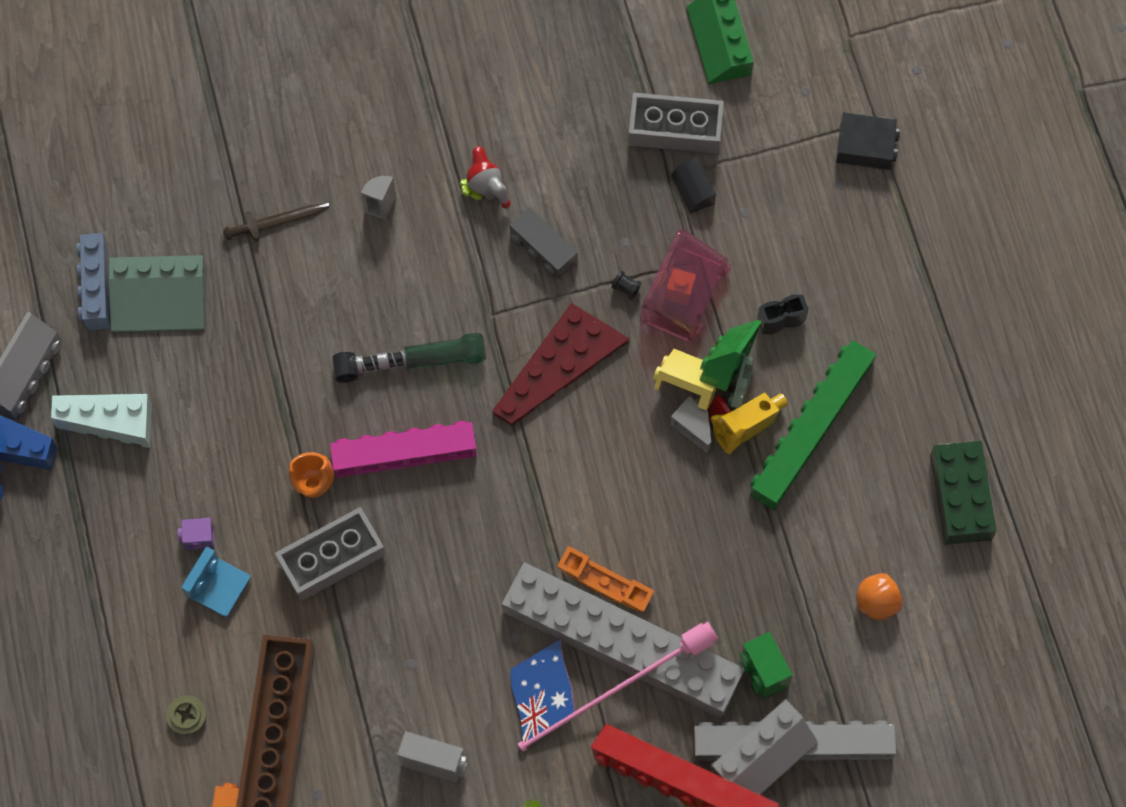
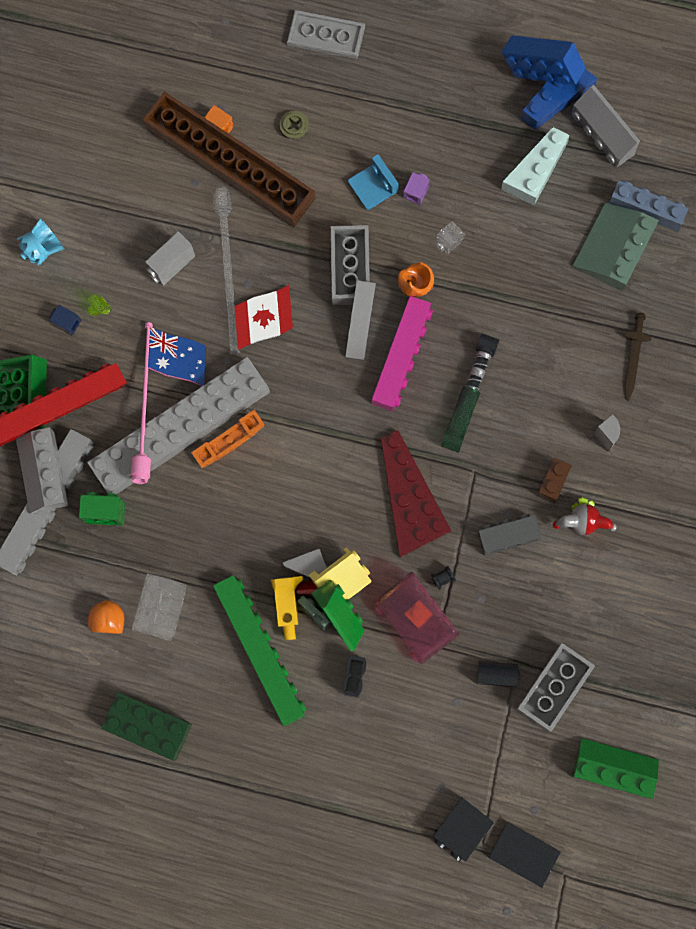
camera: 125 degrees right, 10 degrees up
(48, 742) = (326, 34): none -> light grey tile
(240, 468) = (449, 238): none -> clear brick
(390, 507) = (360, 320): none -> light grey slope
(442, 627) = (259, 316): none -> flag
(459, 227) = (554, 480): none -> reddish brown brick
(832, 553) = (159, 607): none -> clear slope
(854, 78) = (524, 854): none -> black tile

